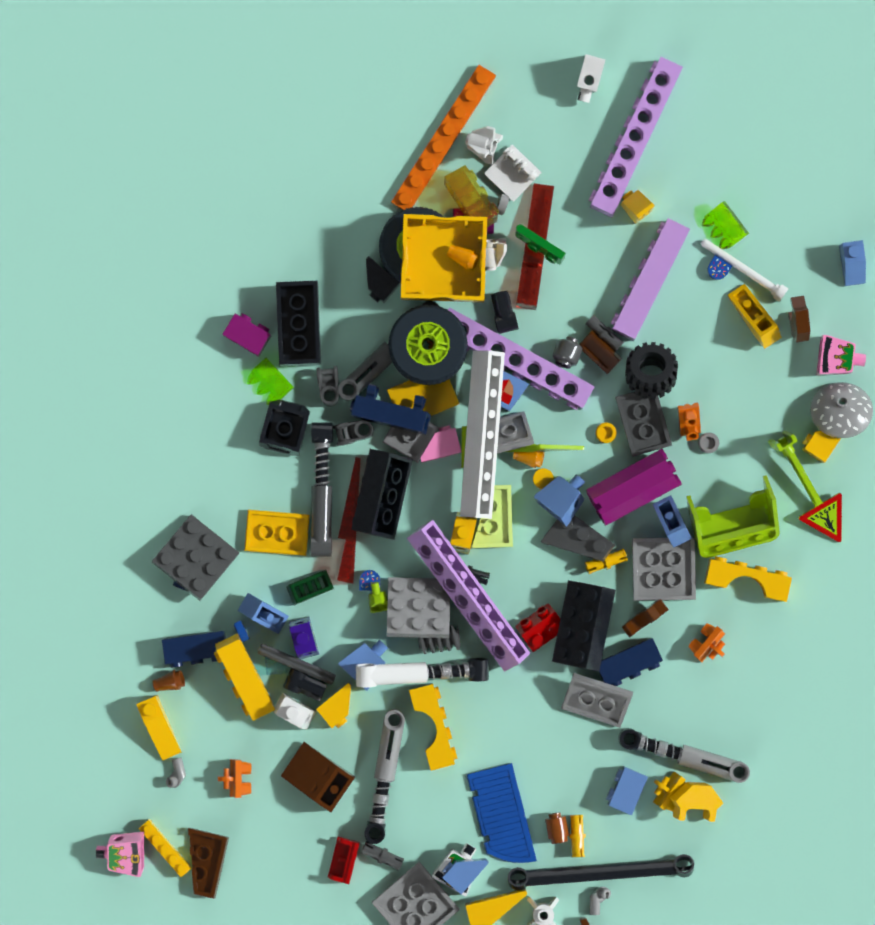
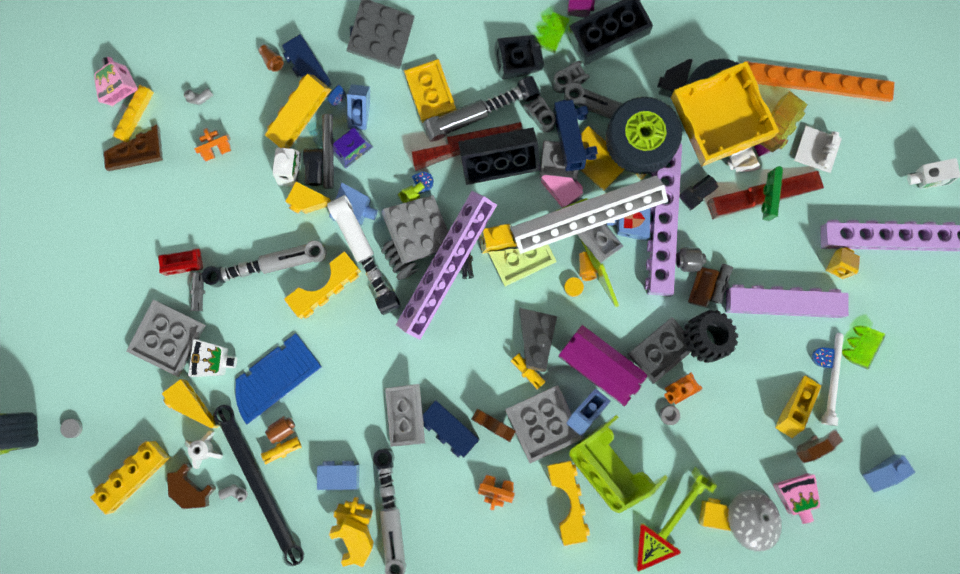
camera: 75 degrees right, 5 degrees down
(159, 727) = (230, 64): yellow slope -> none
(293, 594) = (391, 121): dark green slope -> none
(317, 776) = (240, 210): reddish brown slope -> none
(463, 872) = (205, 363): medium blue slope -> none
(464, 257) = (733, 130): light orange cone -> none
(483, 143) = (831, 112): white brick -> none
(502, 204) = (788, 151): light grey tile -> none
(539, 627) = (446, 340): red bracket -> none
(561, 498) = (564, 308): medium blue torso -> none
(583, 625) = (463, 375): black brick -> none
(606, 432) = (637, 323): yellow tile -> none

